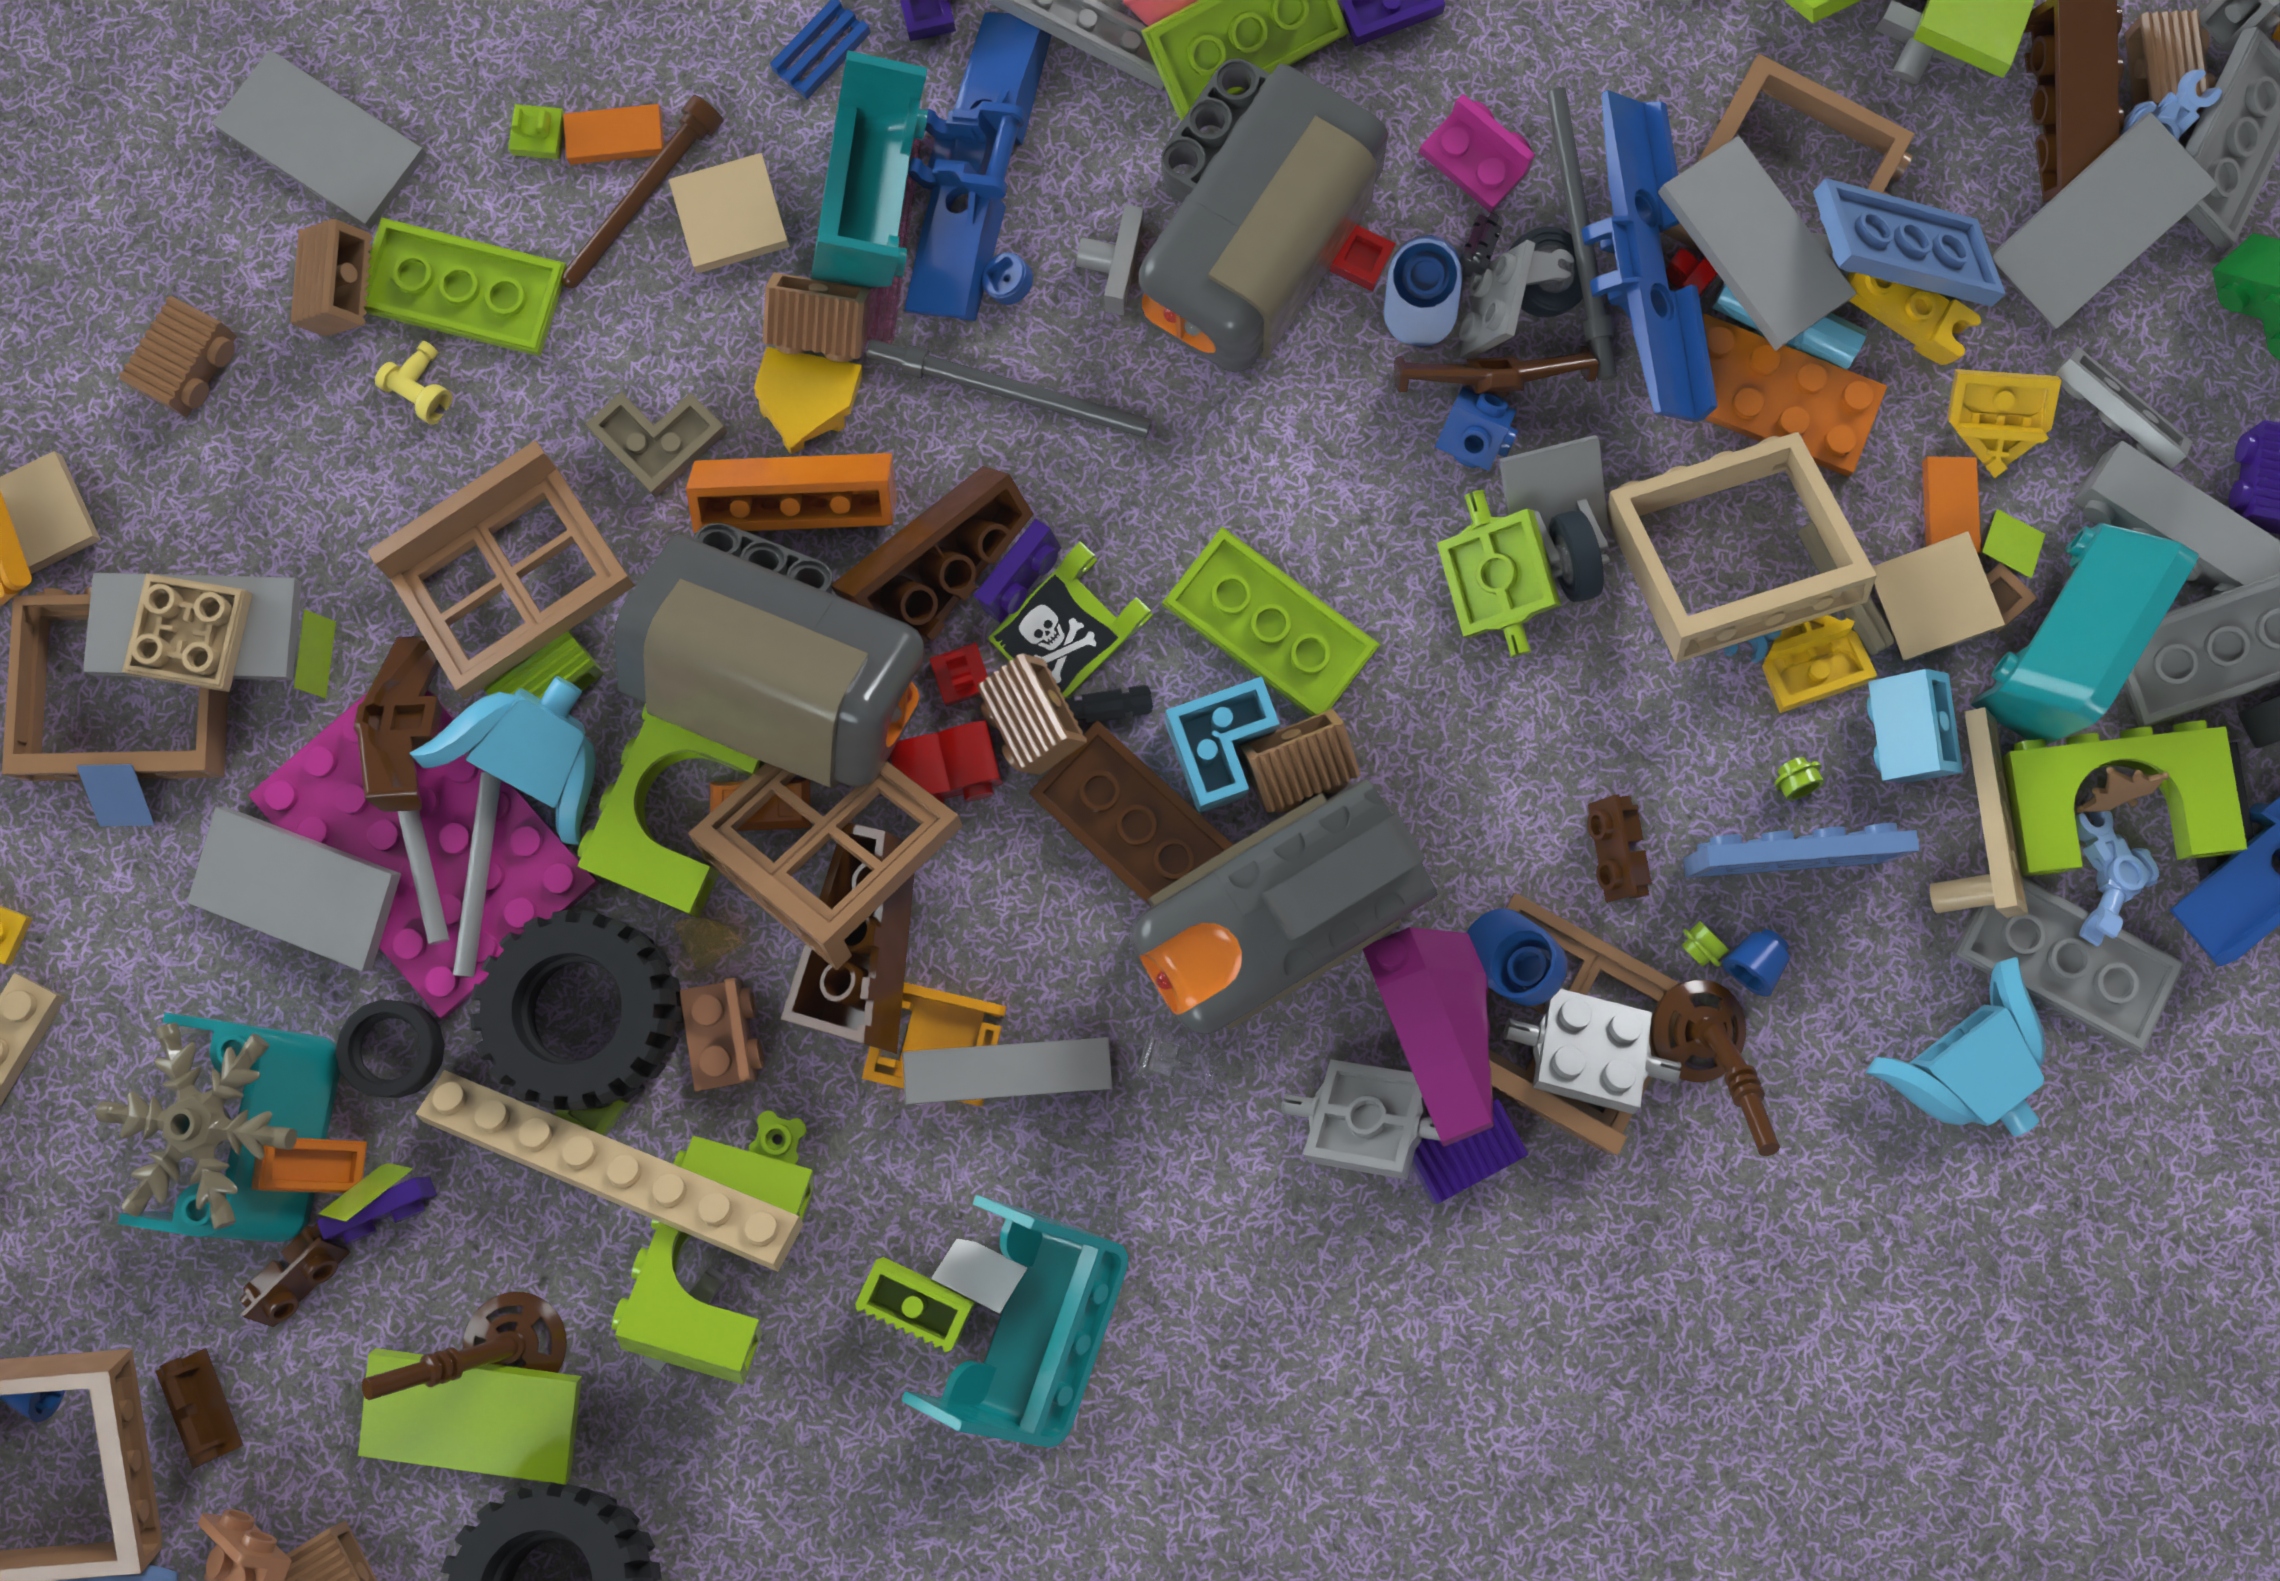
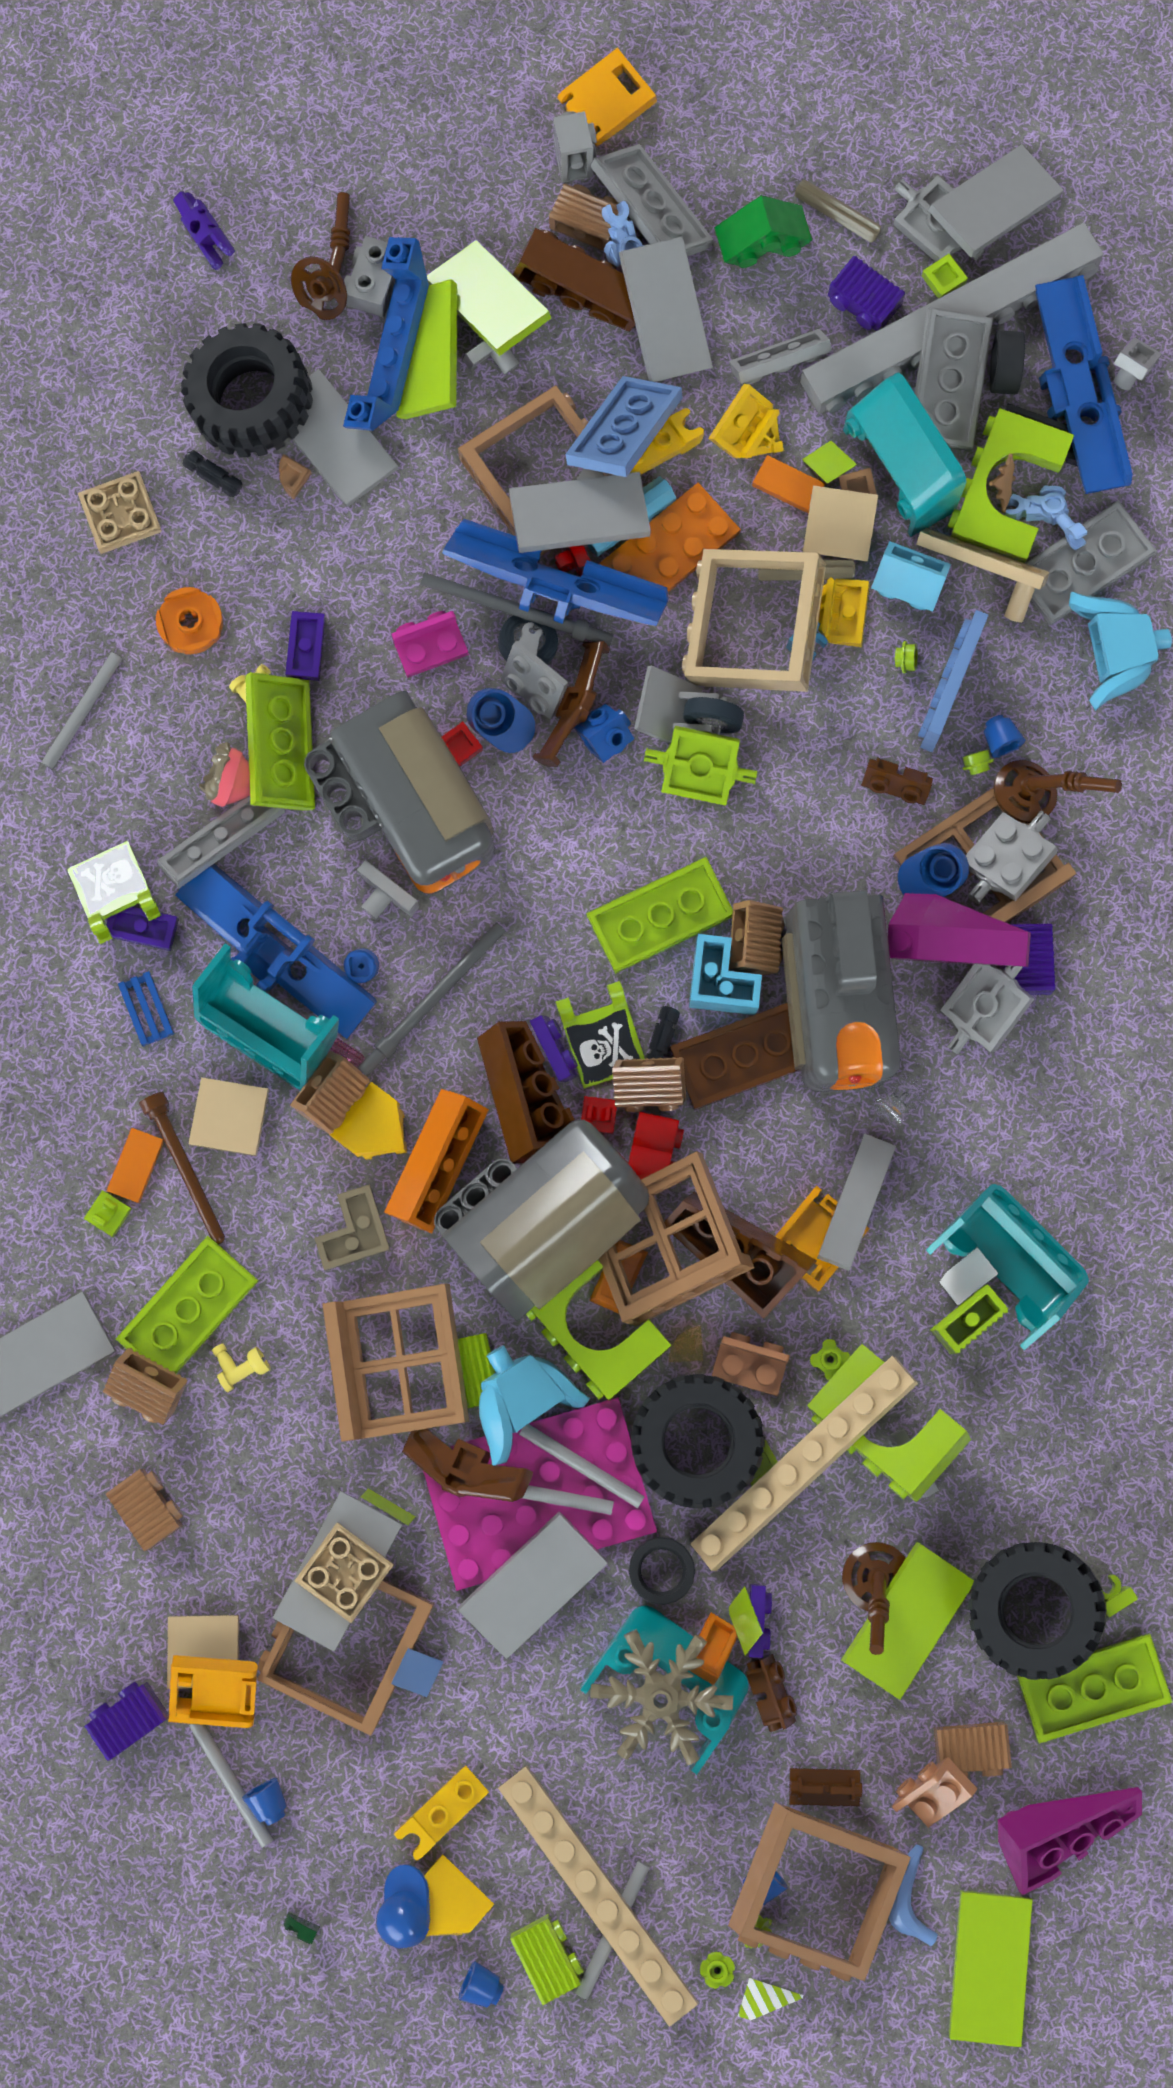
camera: 65 degrees left, 0 degrees up
(1480, 244) = (491, 671): black axle -> none

